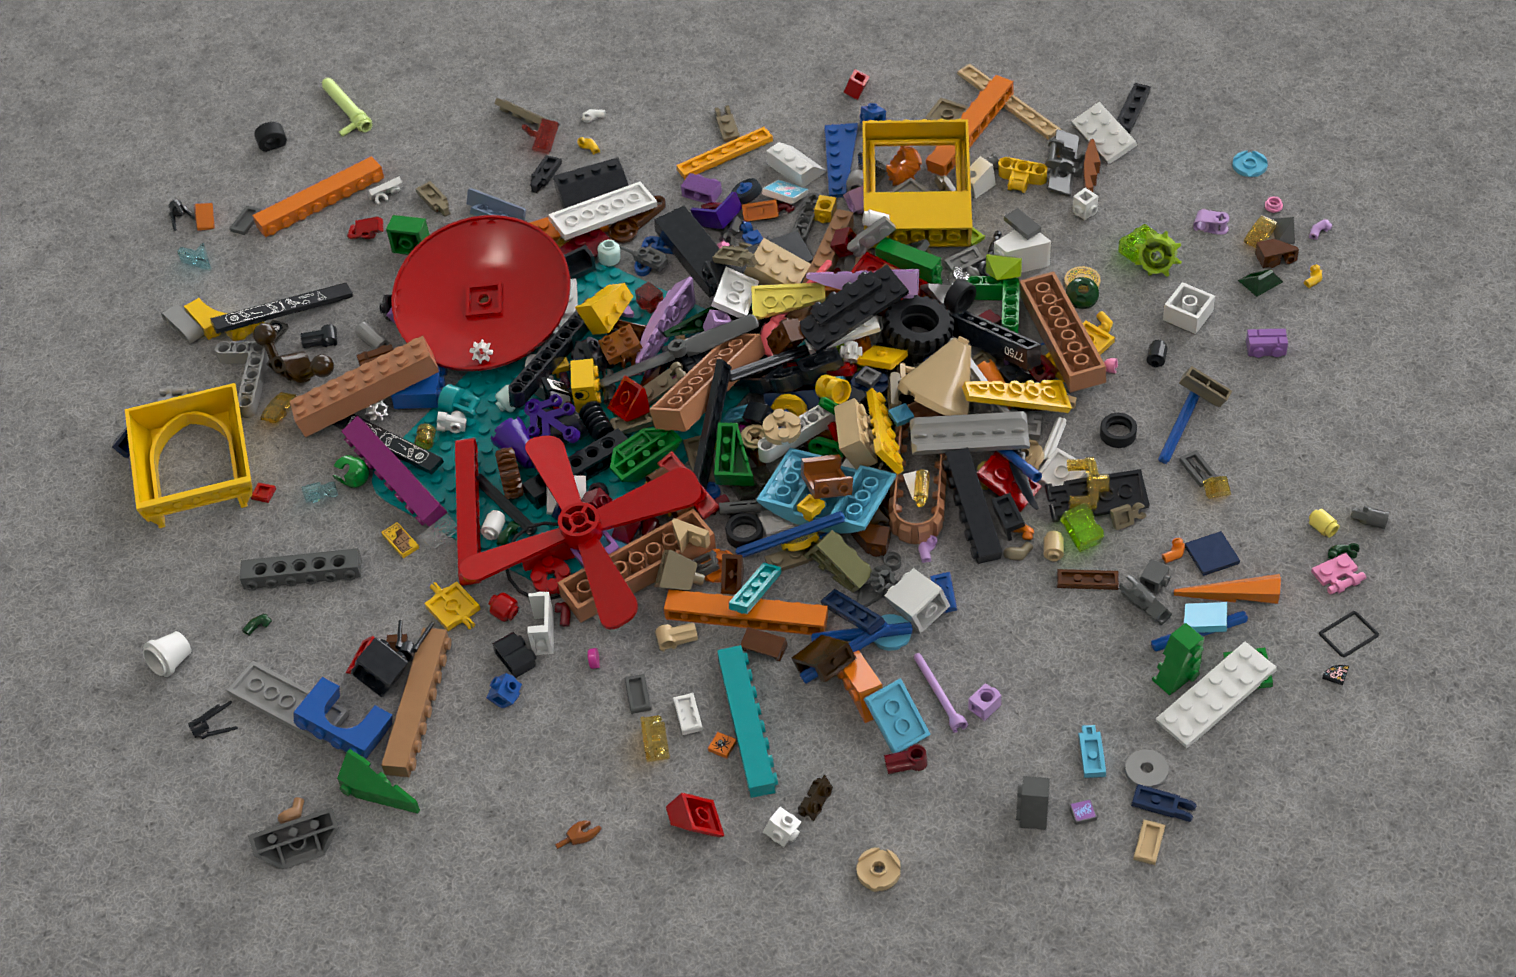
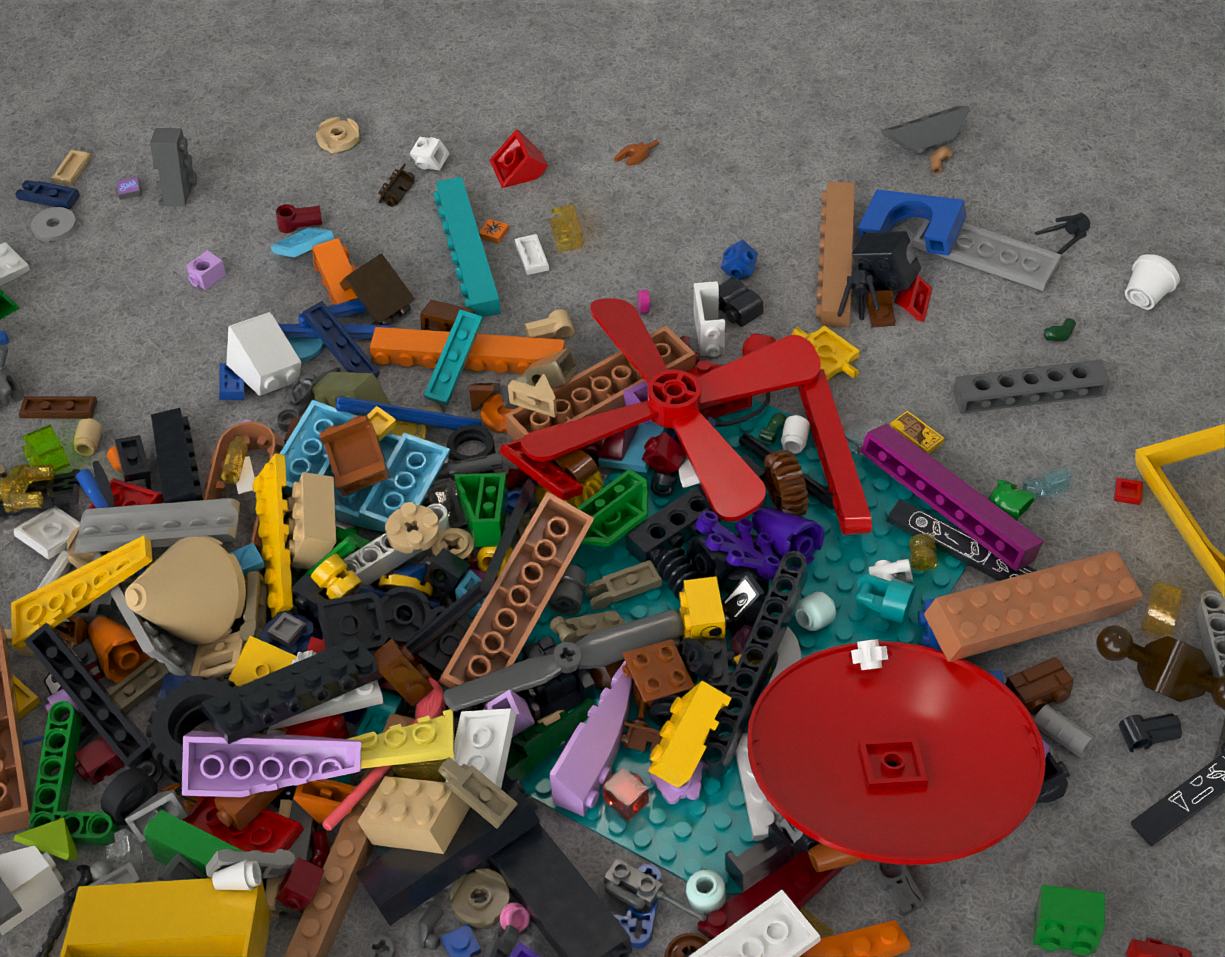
camera: 175 degrees right, 0 degrees up
(365, 784) = (864, 172): green wedge -> none
(629, 400) = (635, 592): red slope -> none
(637, 693) = (590, 275): dark grey tile -> none
(955, 720) = (240, 256): lavender piece -> none
(1016, 553) = (140, 429): dark tan arm -> none
(1049, 373) = (33, 676): dark red brick -> none
(1092, 752) = (105, 233): medium azure hinge -> none

